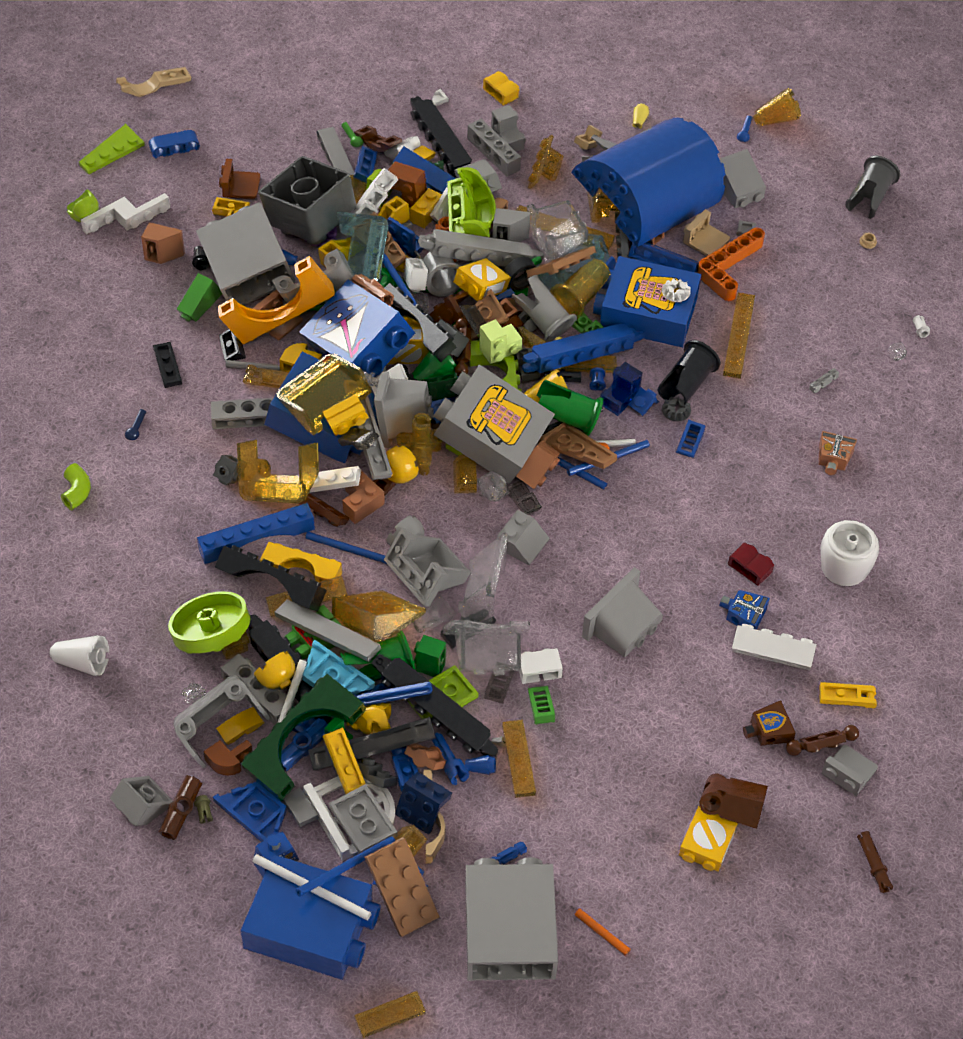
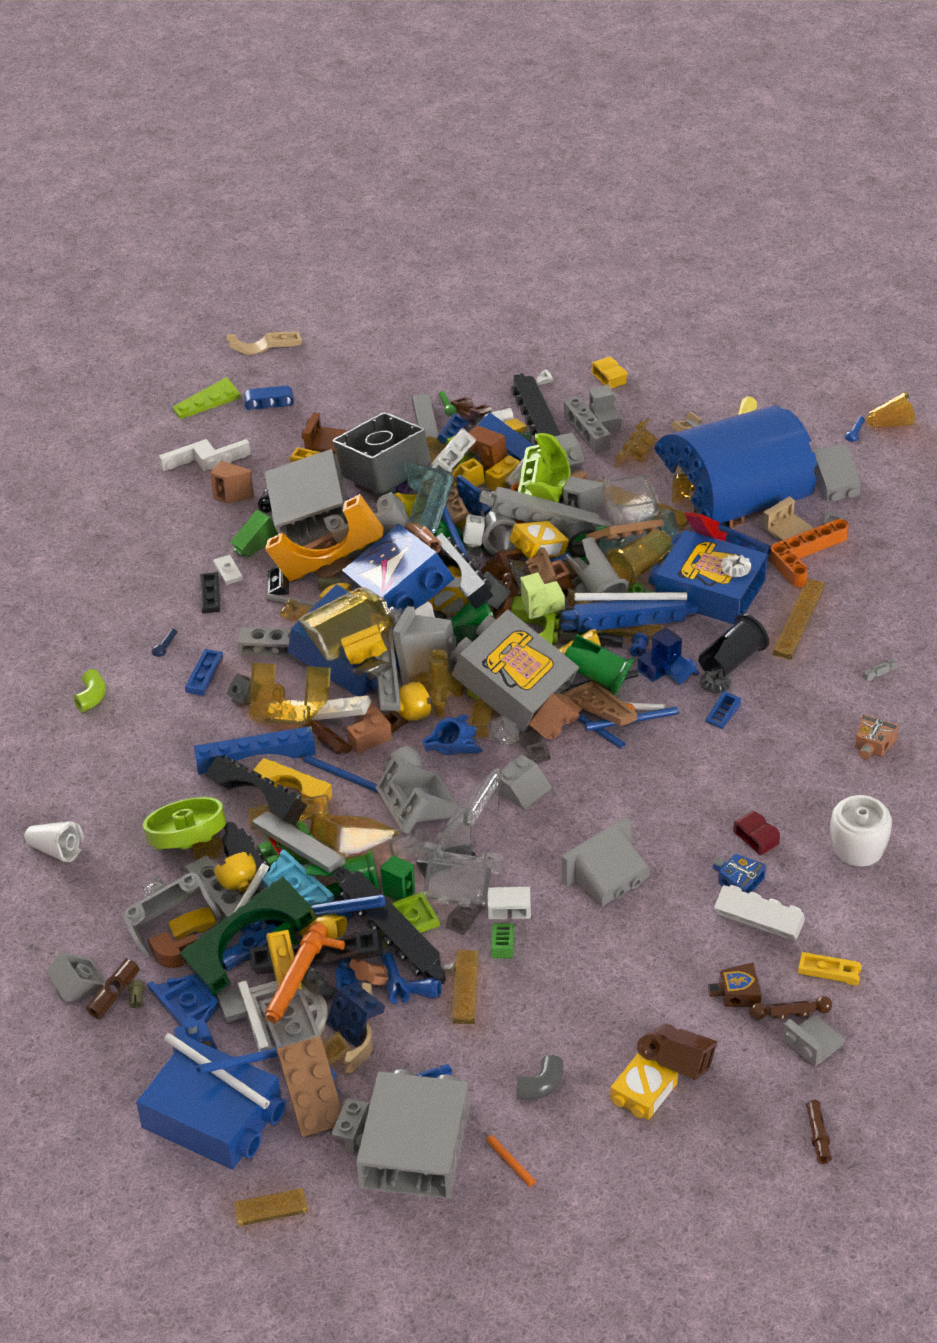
camera: 15 degrees right, 10 degrees down
(83, 206) = (164, 444): lime piece -> none
(179, 337) = (227, 569): none -> white plate
(184, 453) = (204, 672): none -> blue plate
(283, 342) = (326, 582): none -> olive pin
(366, 739) = (311, 944): none -> orange cylinder
(446, 498) = (453, 738): none -> blue piece
(447, 917) = (351, 1124): none -> light grey bracket
(581, 331) = (629, 596): none -> white piece
(616, 847) = (544, 1082): none -> dark grey cylinder
(639, 252) = (705, 526): none -> red slope

